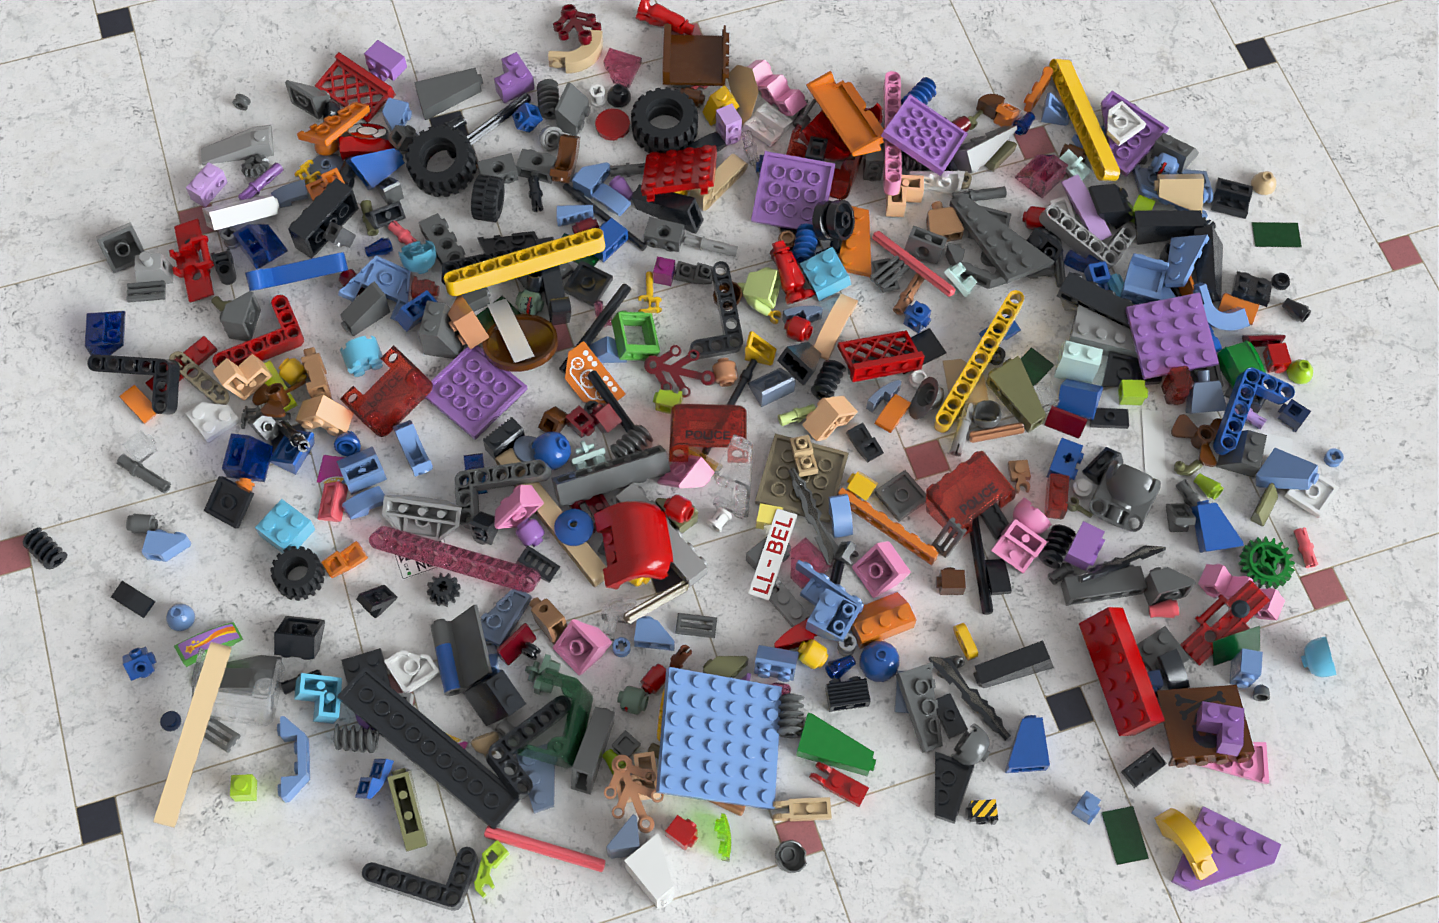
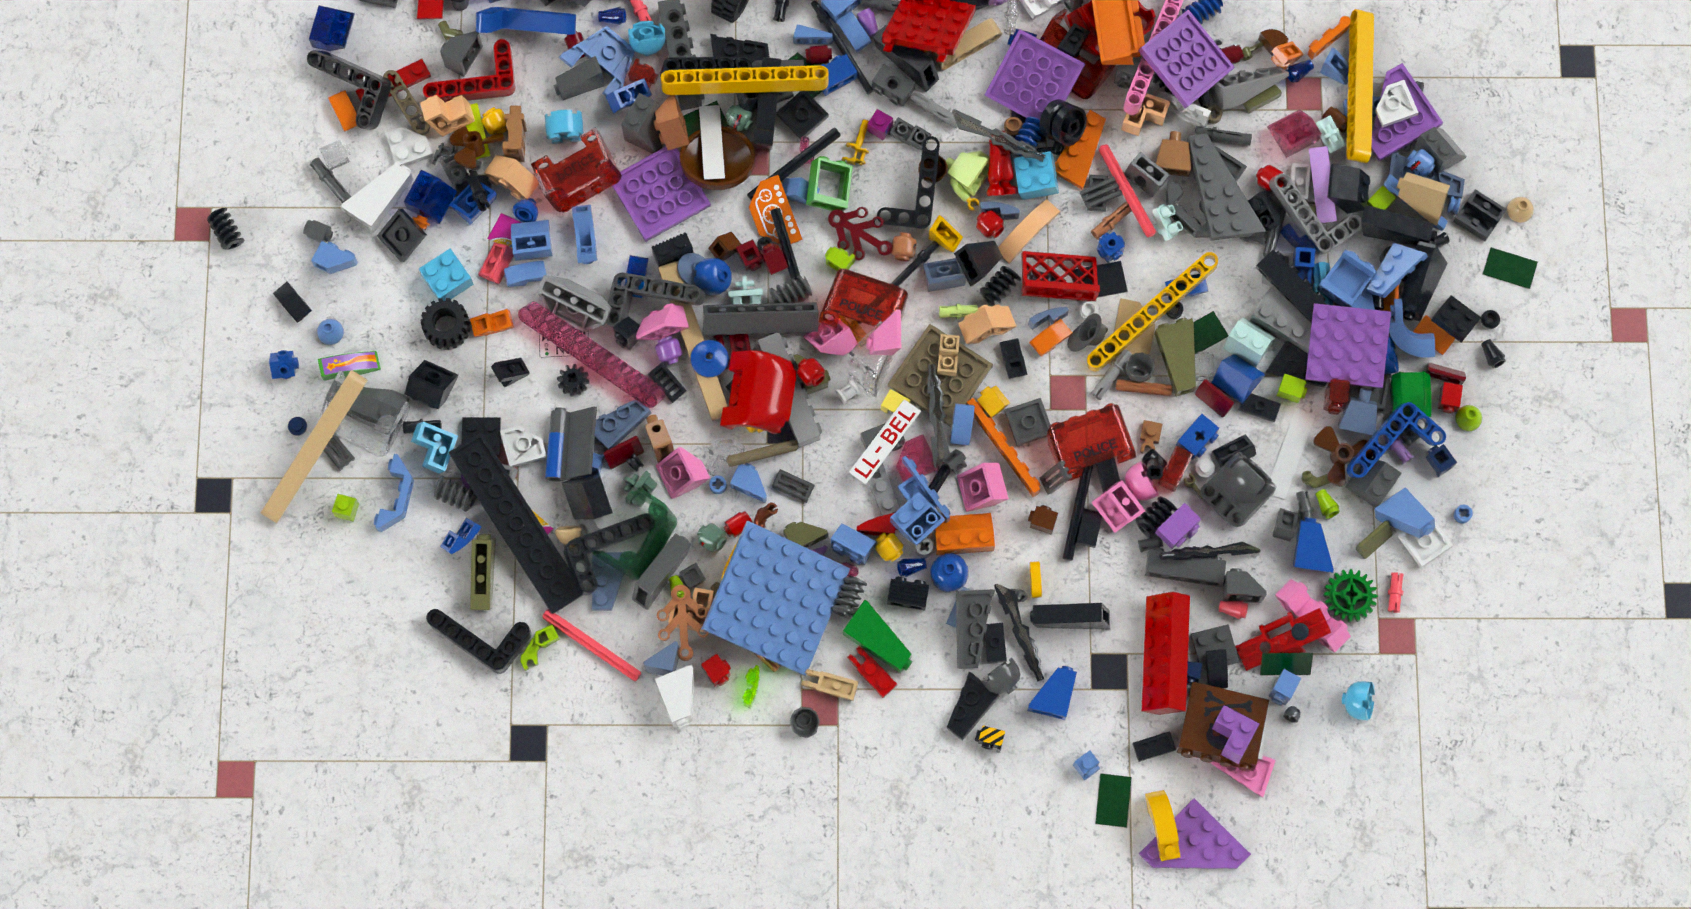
camera: 20 degrees right, 10 degrees up
(195, 474) = (378, 197): none -> white slope
(748, 241) = (997, 136): none -> dark grey sword
(748, 444) = (887, 337): none -> bright pink slope
(1037, 497) = (1154, 464): none -> black piece

